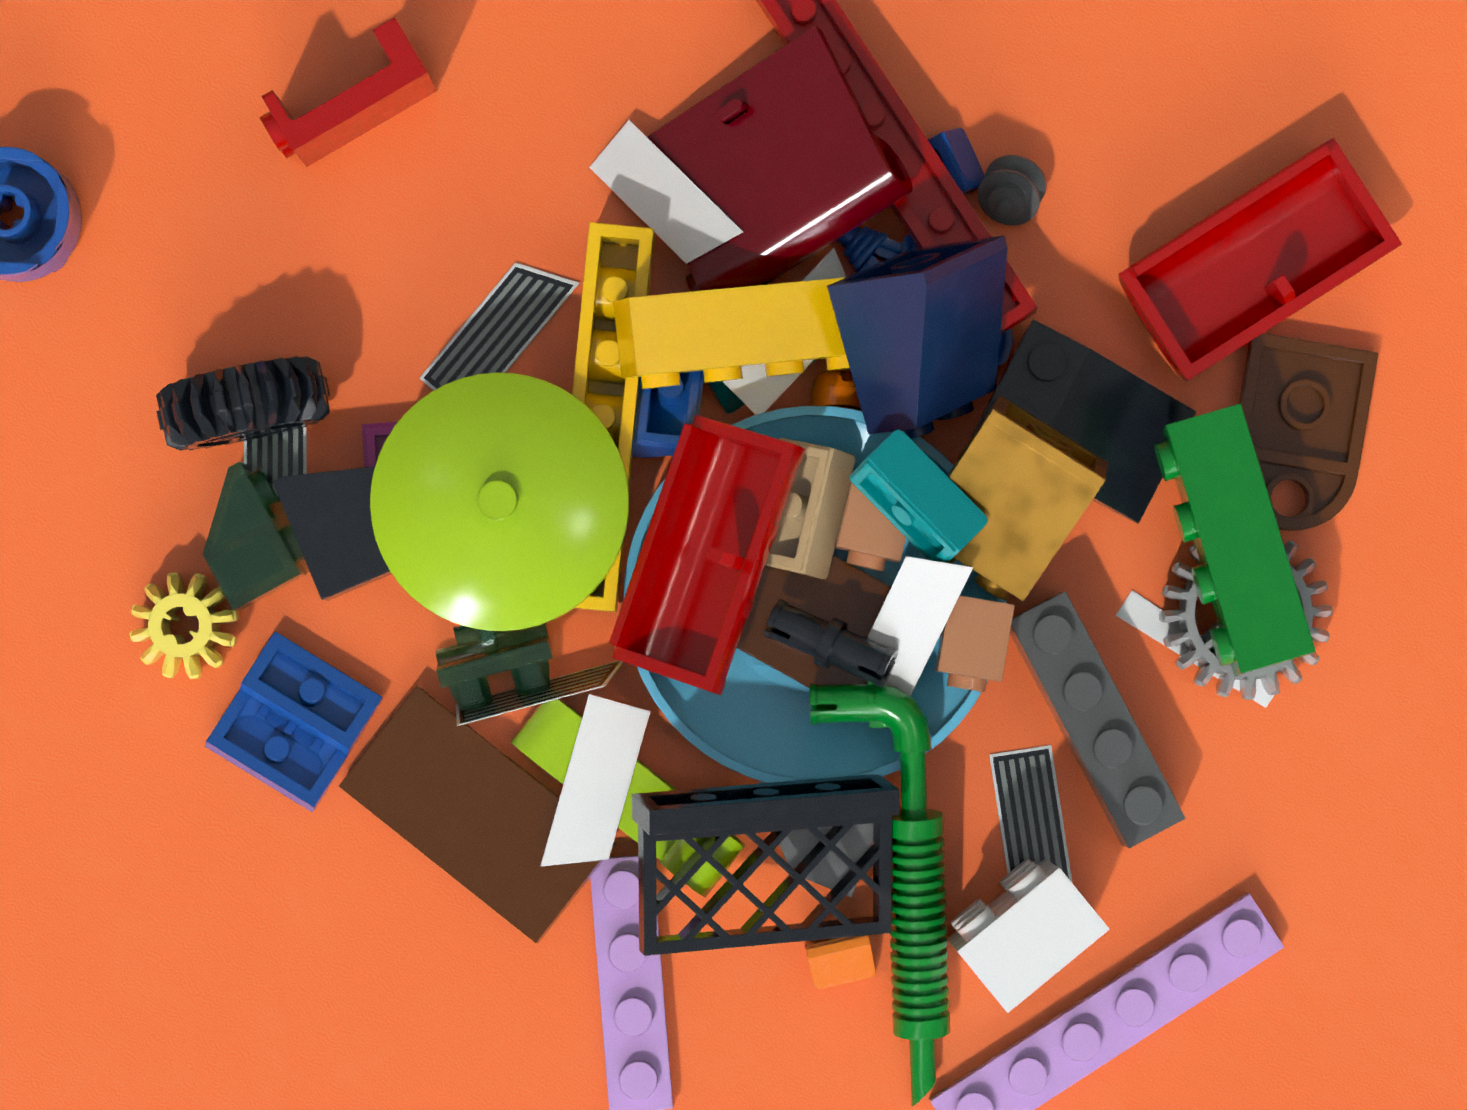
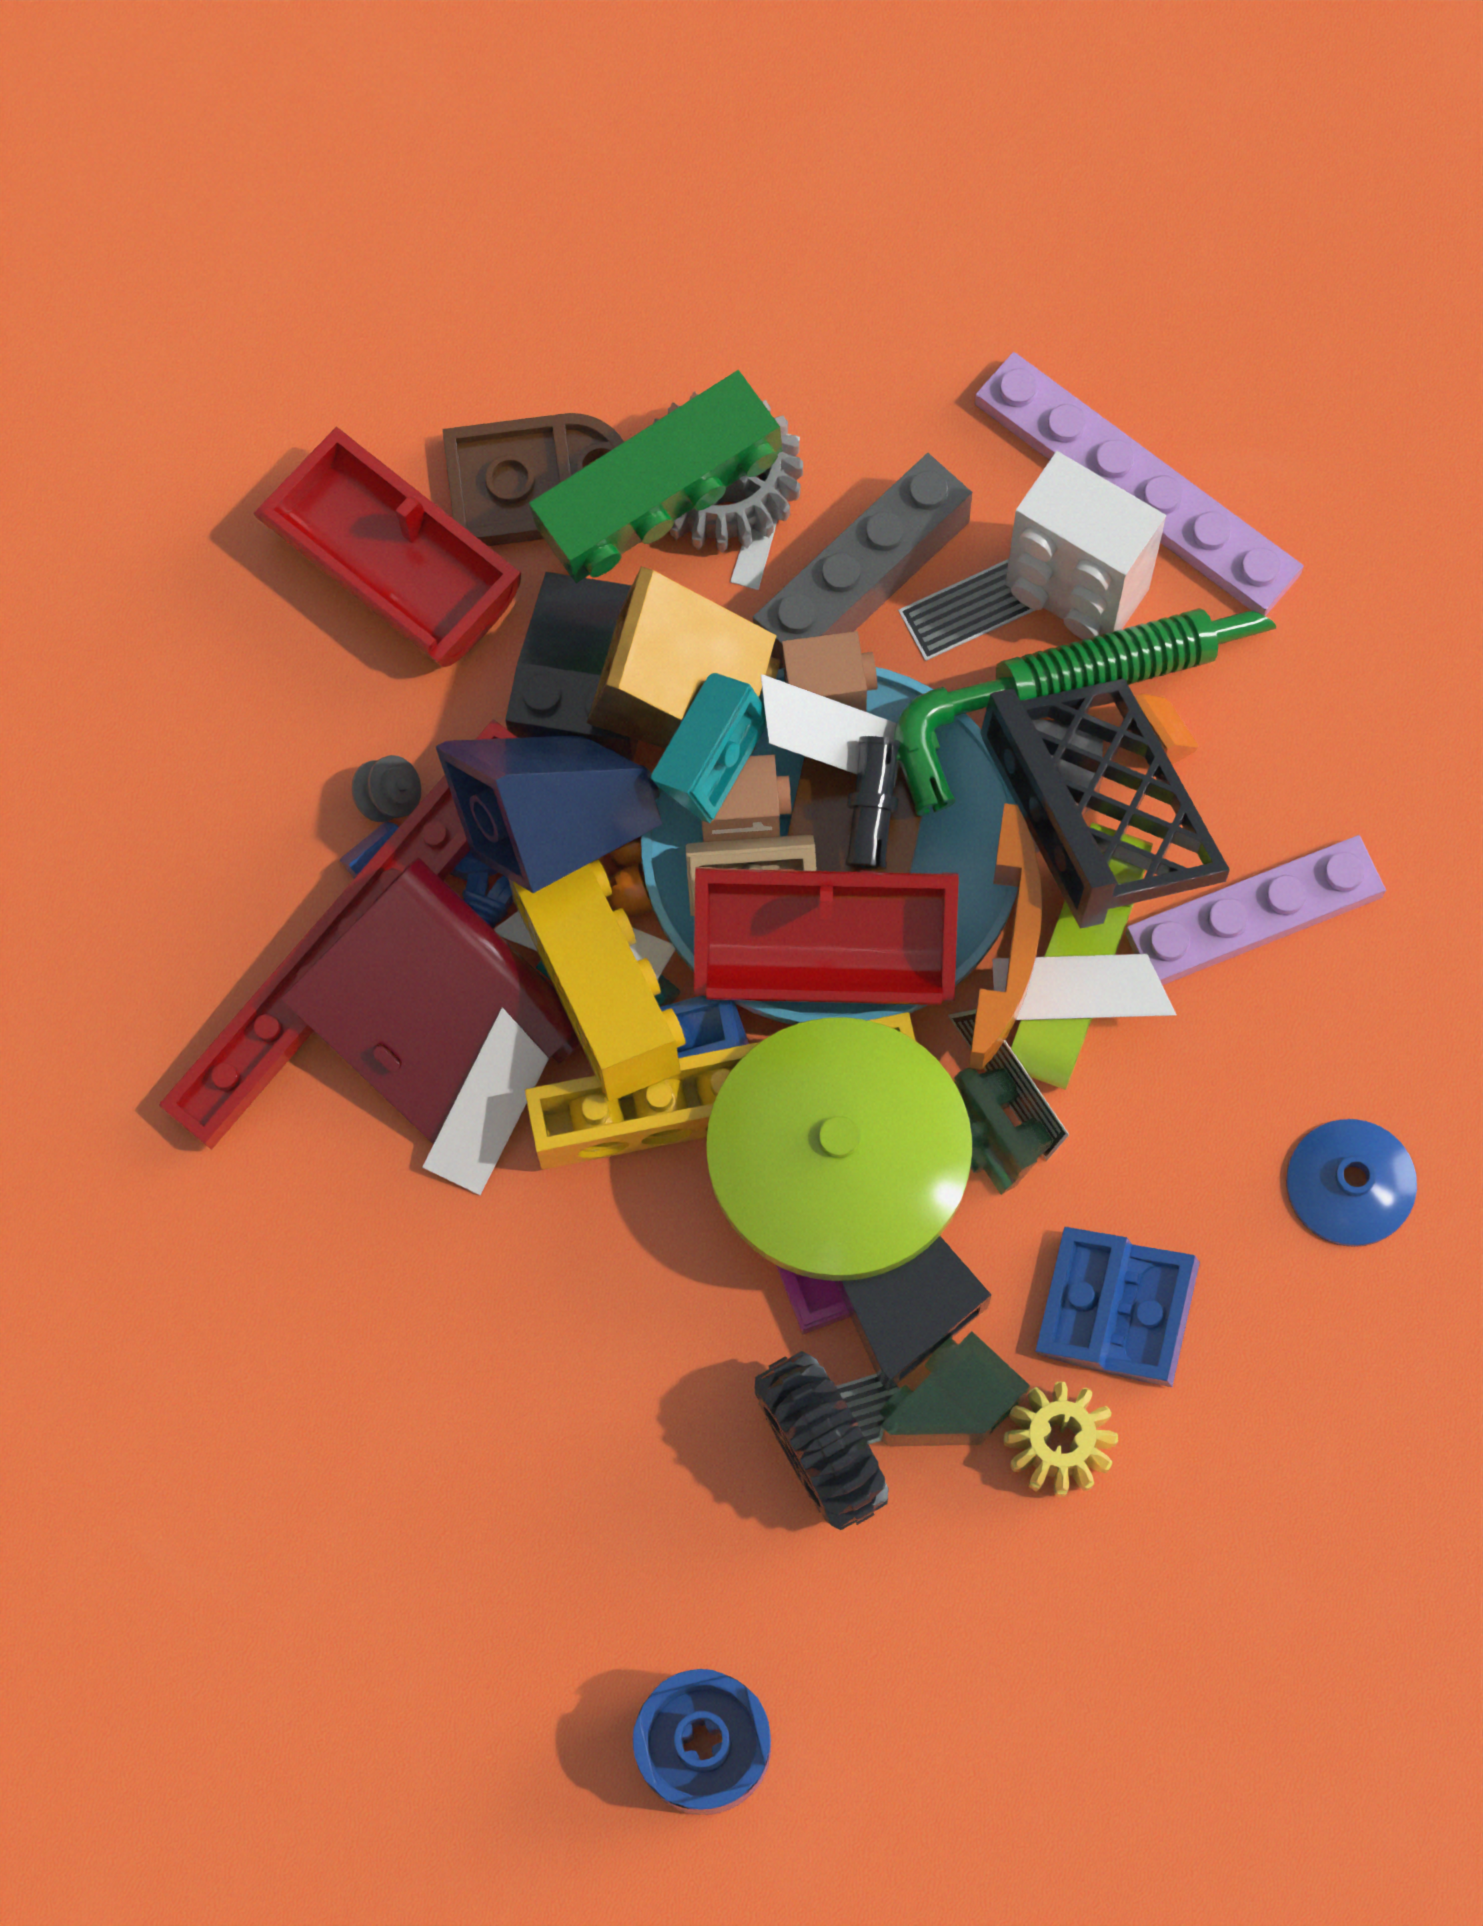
camera: 105 degrees left, 15 degrees down
(356, 108) = (442, 1381): red panel -> none
(377, 976) = (1334, 1207): none -> blue dish
(468, 812) = (1147, 1108): reddish brown tile -> none
(501, 325) = (671, 1233): sticker -> none
(583, 691) = (1019, 868): none -> orange slope

